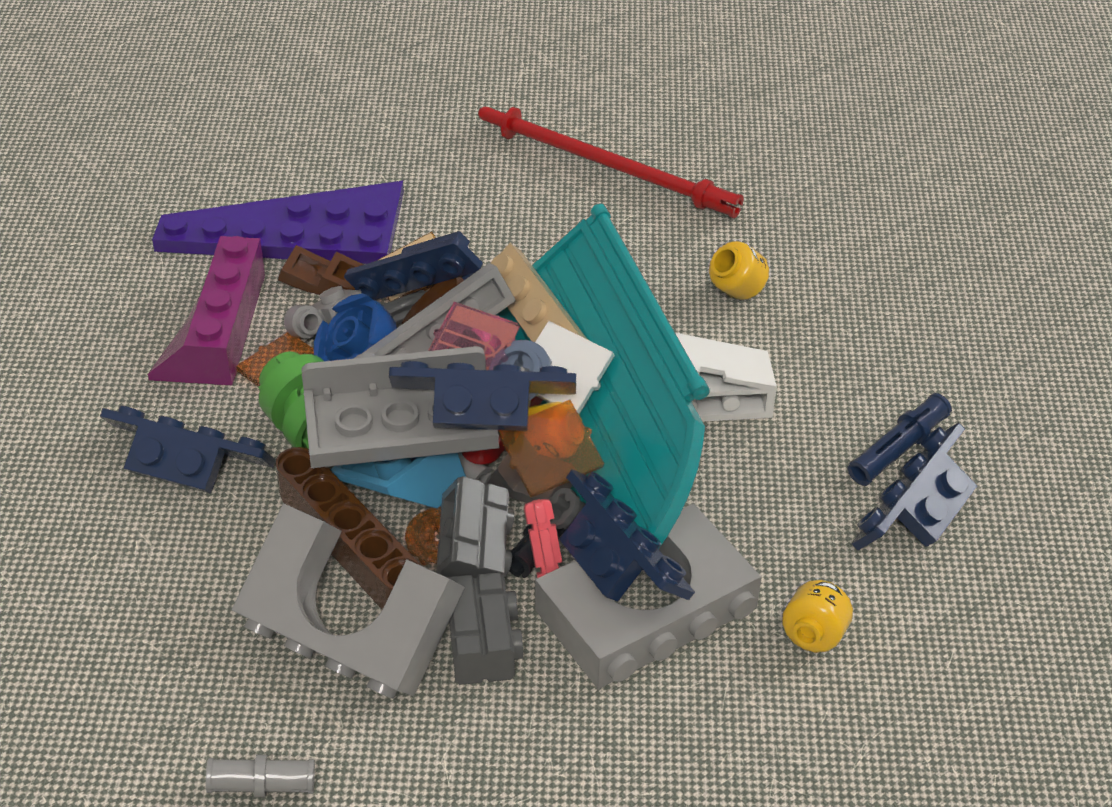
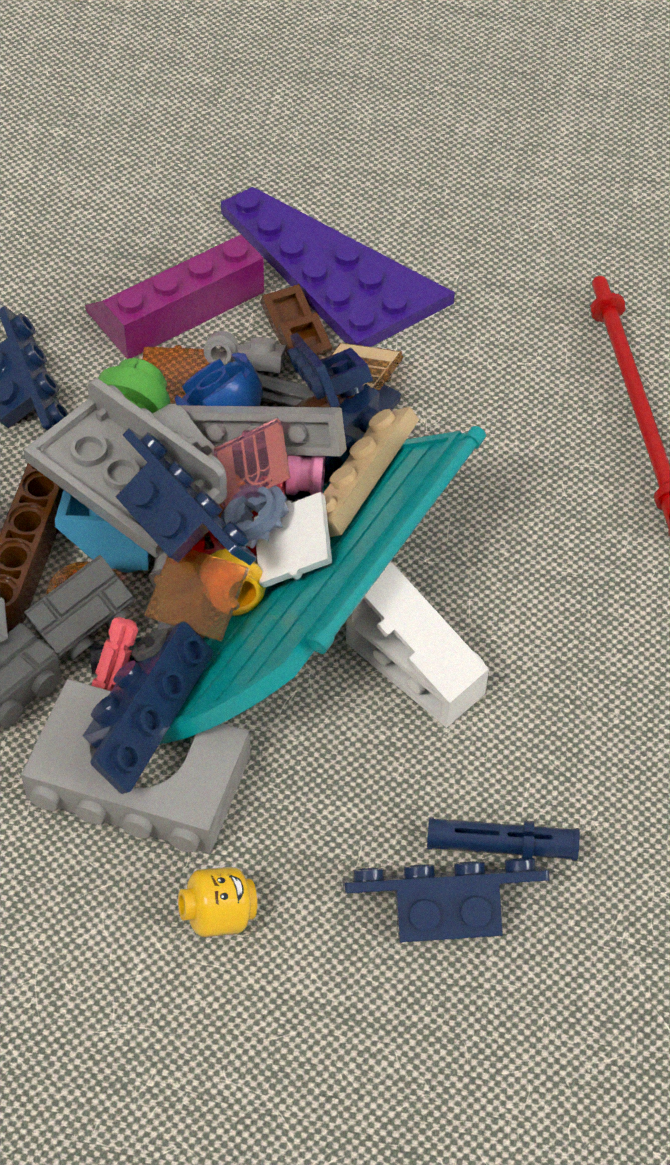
camera: 50 degrees right, 10 degrees up
(739, 270) = (583, 584): yellow head -> none

